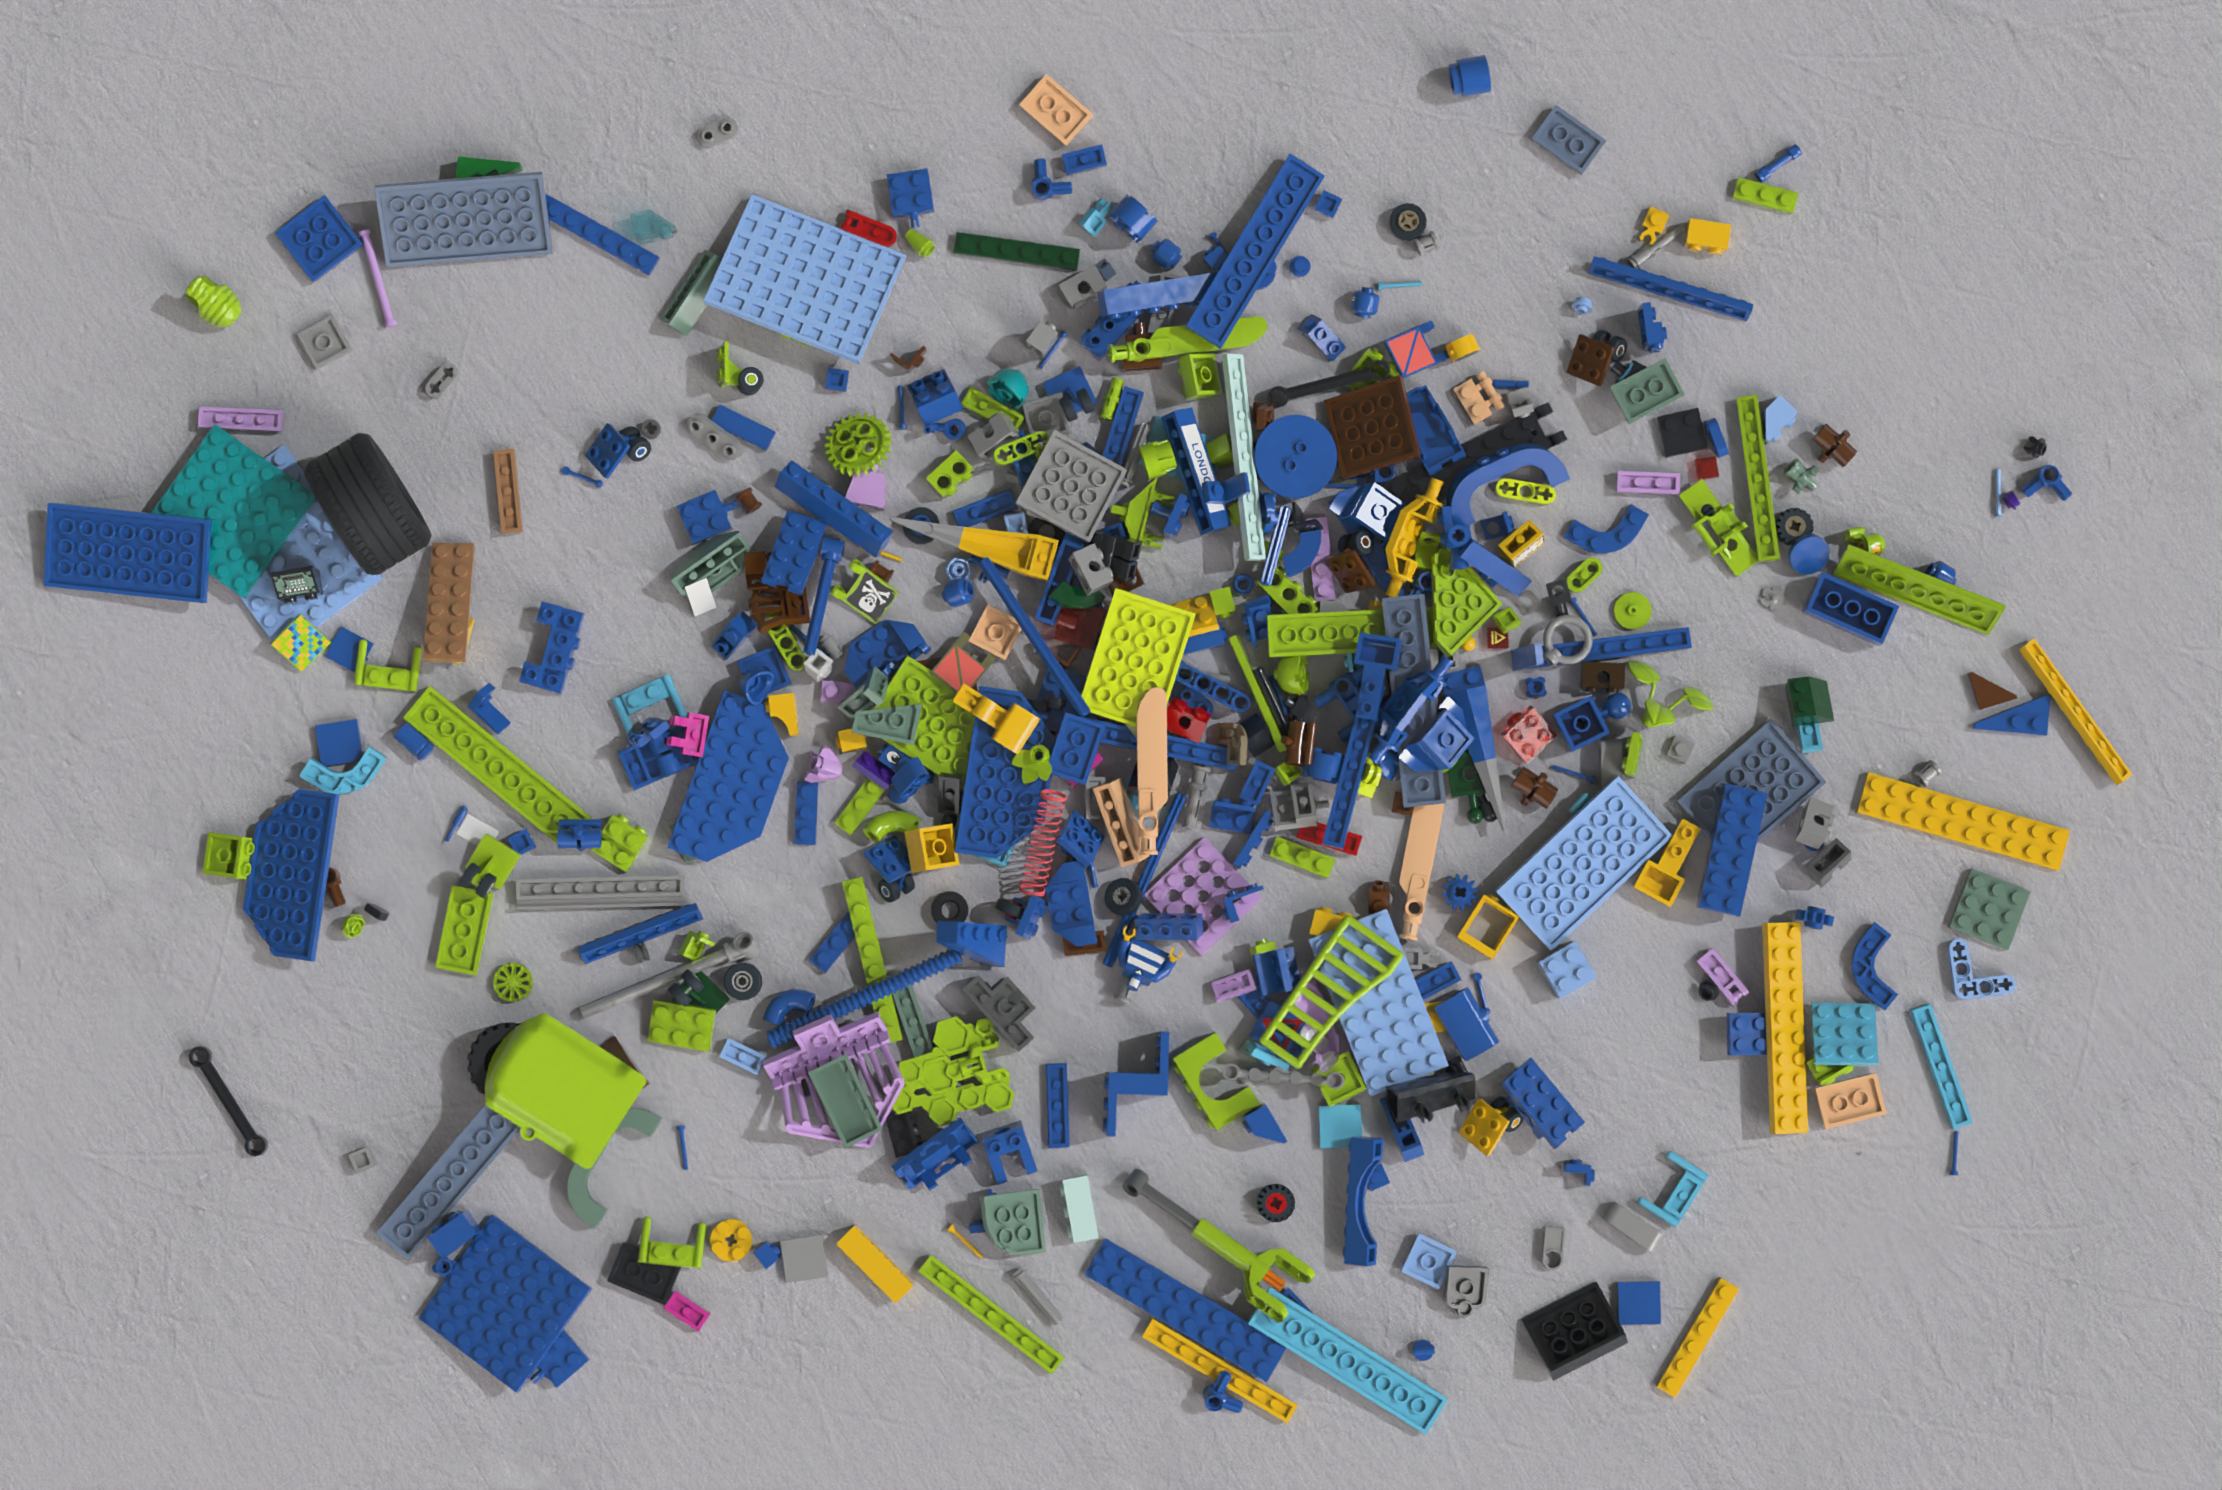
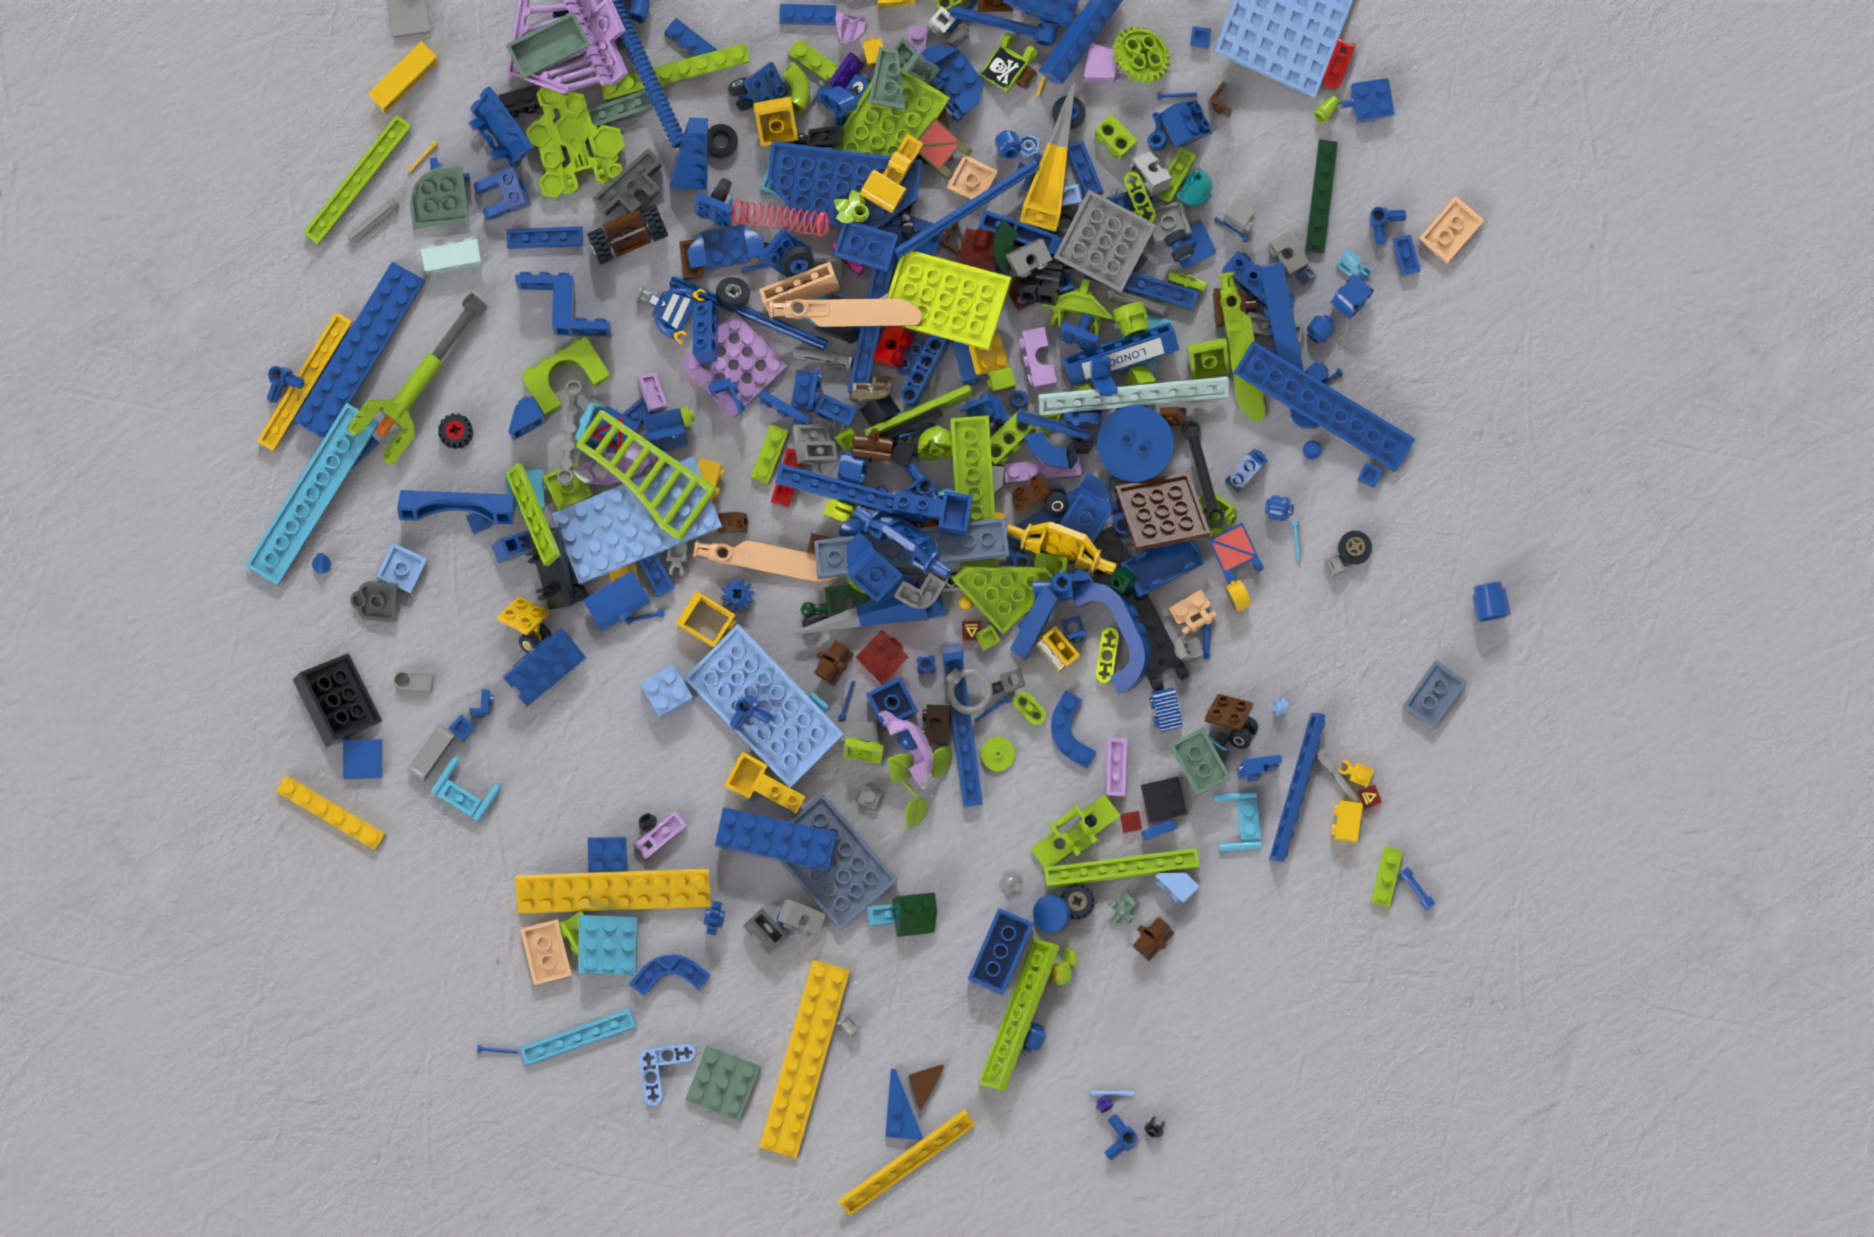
camera: 90 degrees right, 5 degrees down
(1057, 1013) = (627, 234): none -> plate
(1092, 824) = (797, 261): none -> black wheel
(1180, 567) = (1040, 375): none -> lavender arch
(1376, 1115) = (533, 514): none -> lime tile
(1449, 471) = (1122, 580): none -> dark green plate
(1466, 690) = (921, 597): none -> light grey plate
(1587, 427) = (1166, 709): none -> blue brick
(1593, 885) = (742, 712): none -> blue axle
(1605, 1193) = (462, 727): none -> blue plate
(1639, 692) = (922, 757): none -> lavender animal
(1679, 212) = (1369, 797): none -> clear red tile
(1703, 343) = (1247, 820): none -> medium azure plate

